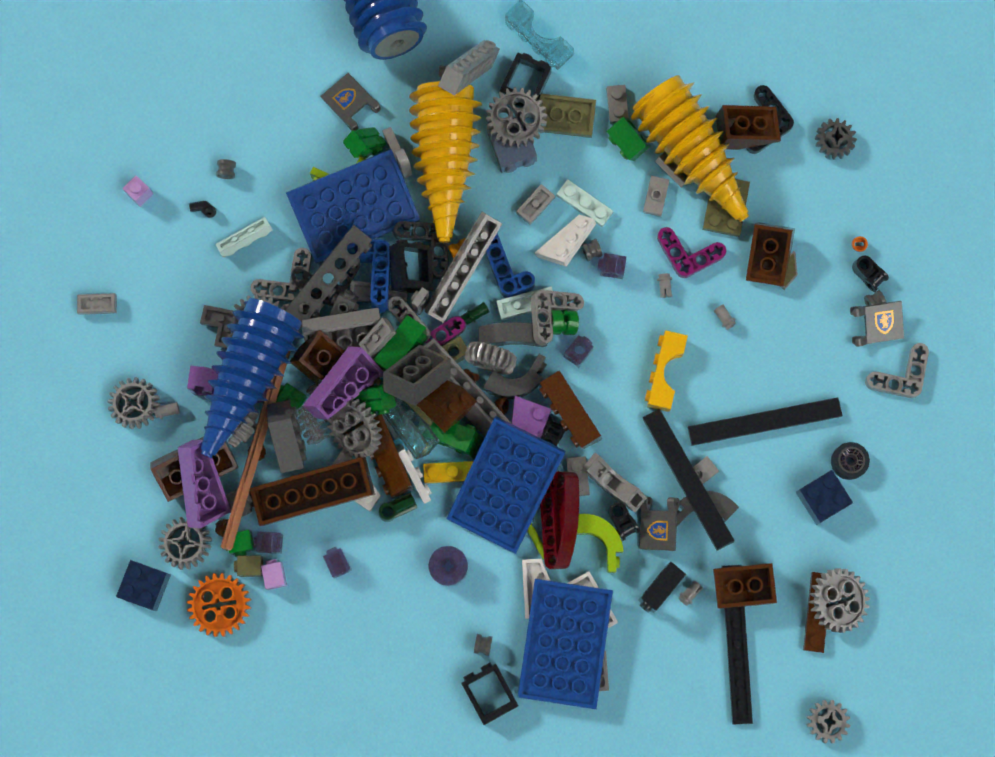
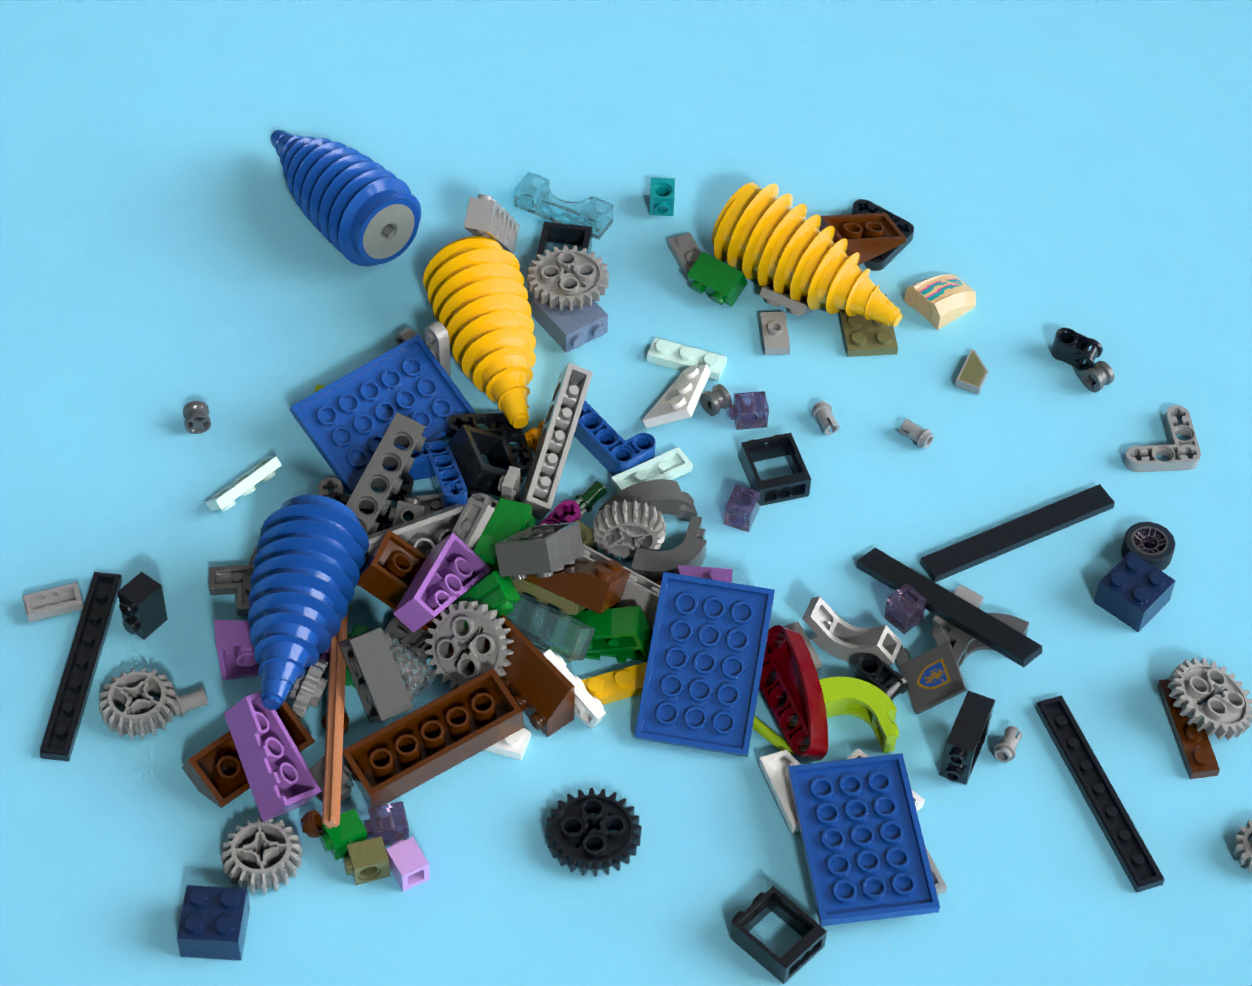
camera: 20 degrees left, 30 degrees down
(106, 358) = (81, 667): none -> black tile
(138, 191) = (80, 463): lavender brick -> none
(150, 330) = (142, 605): none -> black brick
(203, 206) = (176, 465): black arm -> none
(221, 622) = (347, 942): orange gear -> none
(337, 562) = (496, 825): clear purple brick -> none
(347, 99) = (339, 317): dark grey flag -> none
(364, 142) = (372, 341): green brick -> none
(388, 569) = (593, 832): none -> black gear
(399, 506) = (559, 740): dark green piece -> none
(441, 557) = (658, 789): clear purple brick -> none
(483, 644) = (744, 875): dark grey wheel -> none
(535, 204) = (624, 370): light grey plate -> none
(546, 306) = (682, 461): light grey beam -> none
(565, 322) = (707, 478): green wheel -> none
(568, 115) = (635, 276): olive plate -> none
(570, 410) = (761, 562): reddish brown slope -> none
(613, 342) = (780, 488): none -> black window
(618, 38) = (662, 196): none -> teal brick
(659, 470) = (905, 608): none -> clear purple brick
(661, 394) = (868, 527): yellow arch -> none
(689, 261) = (843, 388): magenta beam -> none
(745, 586) = (1082, 708): reddish brown slope -> none
(770, 254) = (944, 352): reddish brown slope -> none
(790, 196) = (941, 299): none -> tan slope
(841, 133) = (971, 231): dark grey gear -> none
(859, 248) = (1047, 322): orange hinge -> none
(882, 322) = (1116, 393): flag -> none

